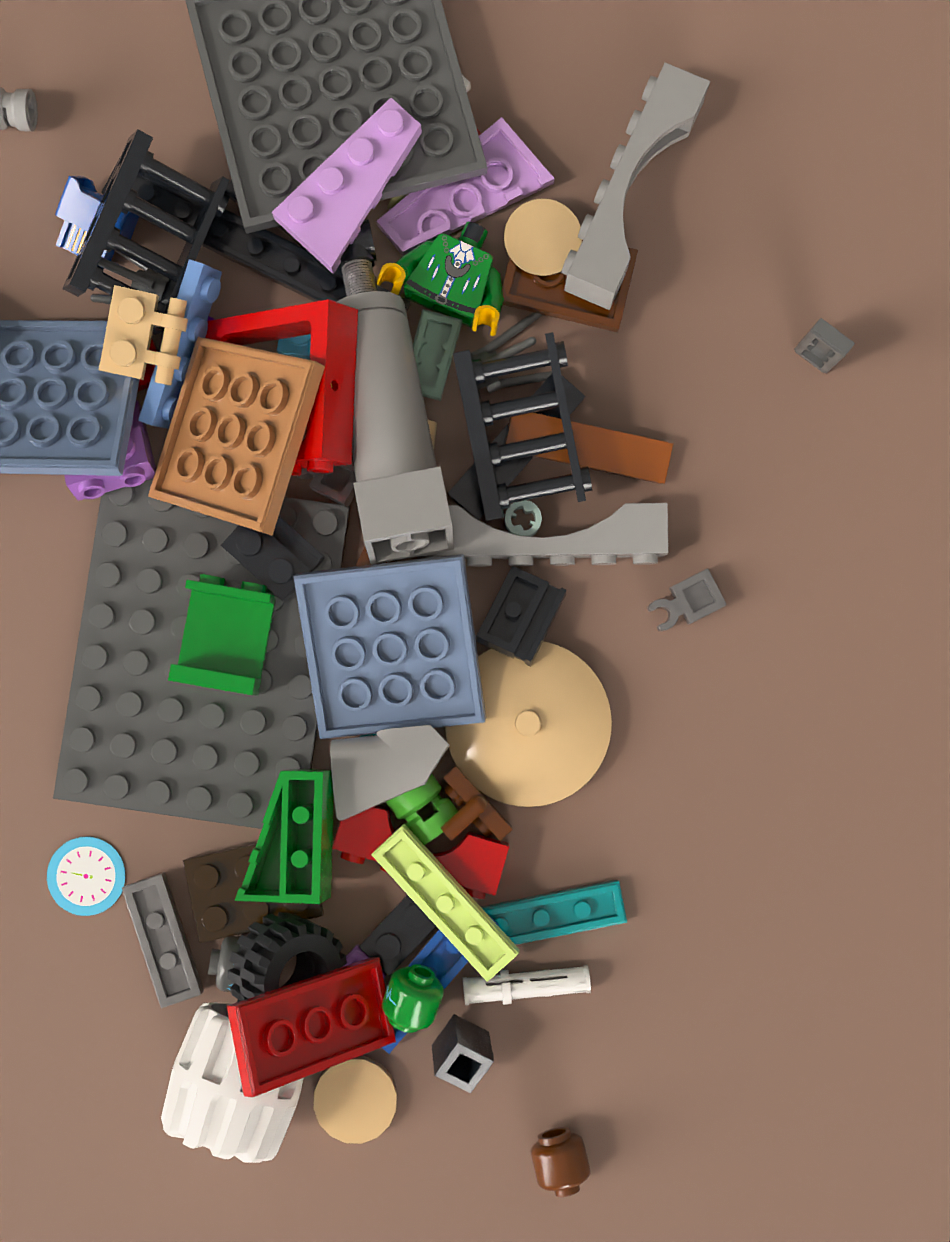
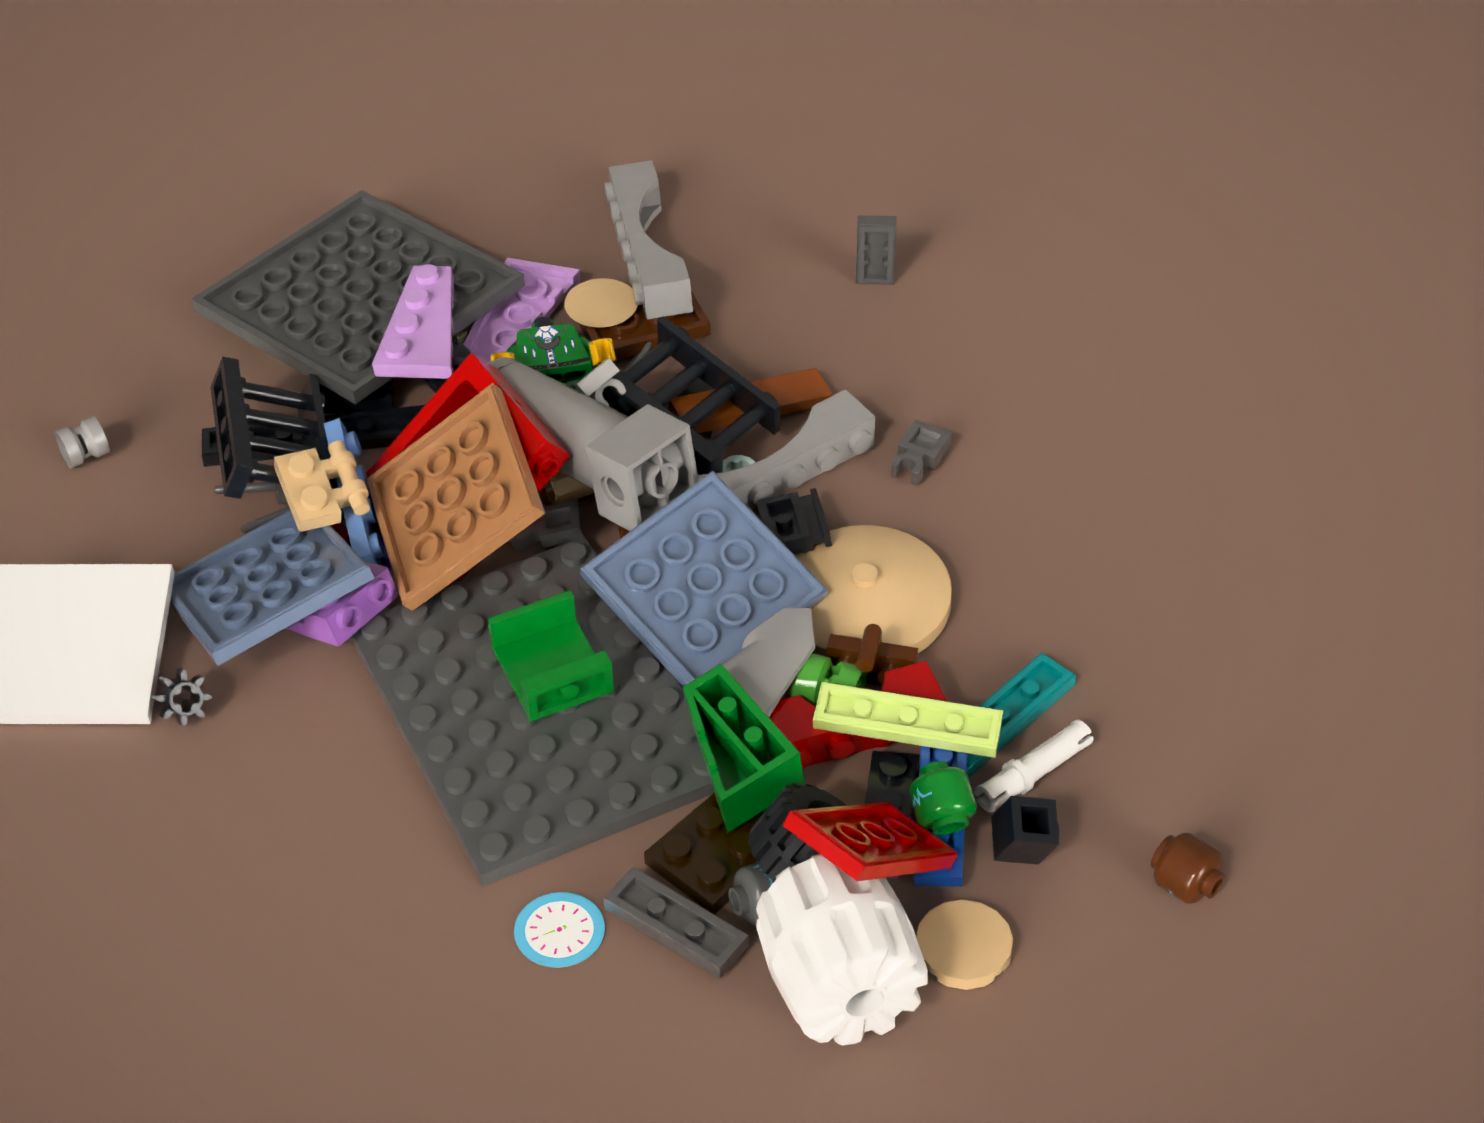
camera: 35 degrees left, 40 degrees down
(78, 209) = (199, 473): piece -> none
(273, 557) = (535, 578): black plate -> none
(441, 377) = (599, 379): none -> light grey tile

